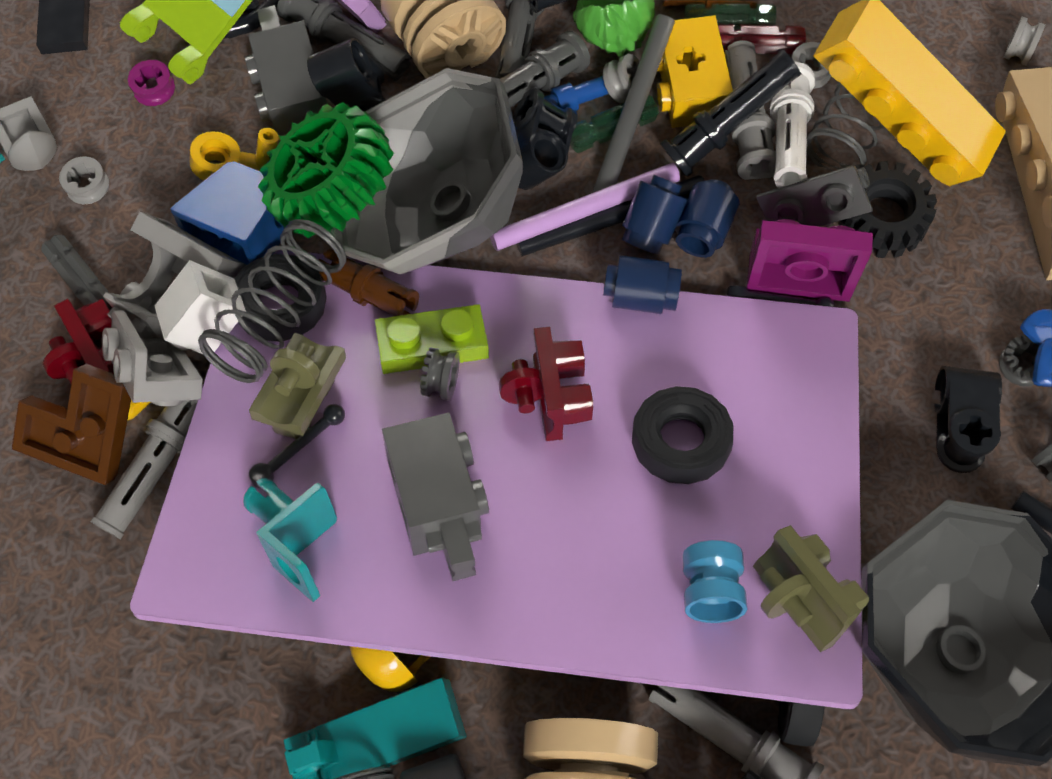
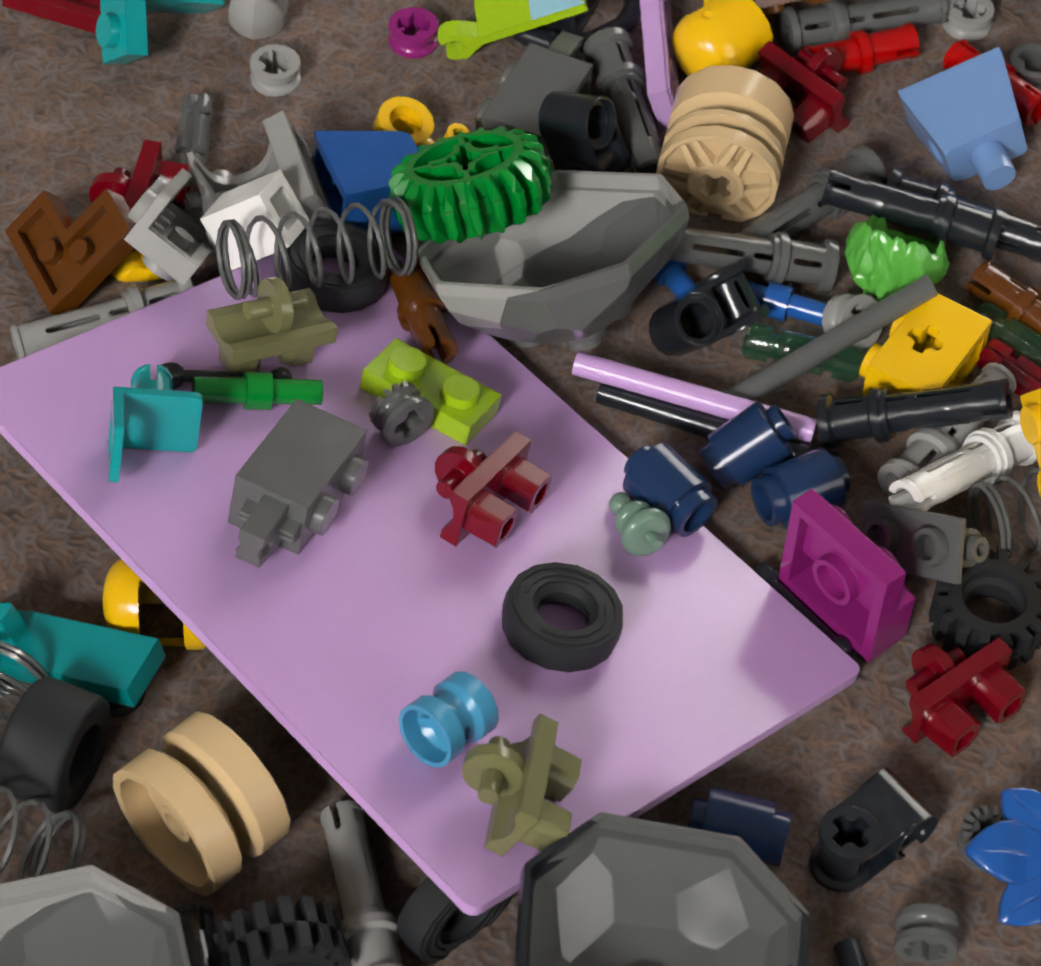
camera: 35 degrees right, 15 degrees down
(331, 438) = (258, 390): none -> green bar
(644, 324) = (640, 526): none -> sand green hair
(899, 480) = (744, 816): none -> dark blue brick
(929, 263) = (950, 684): none -> dark red hips

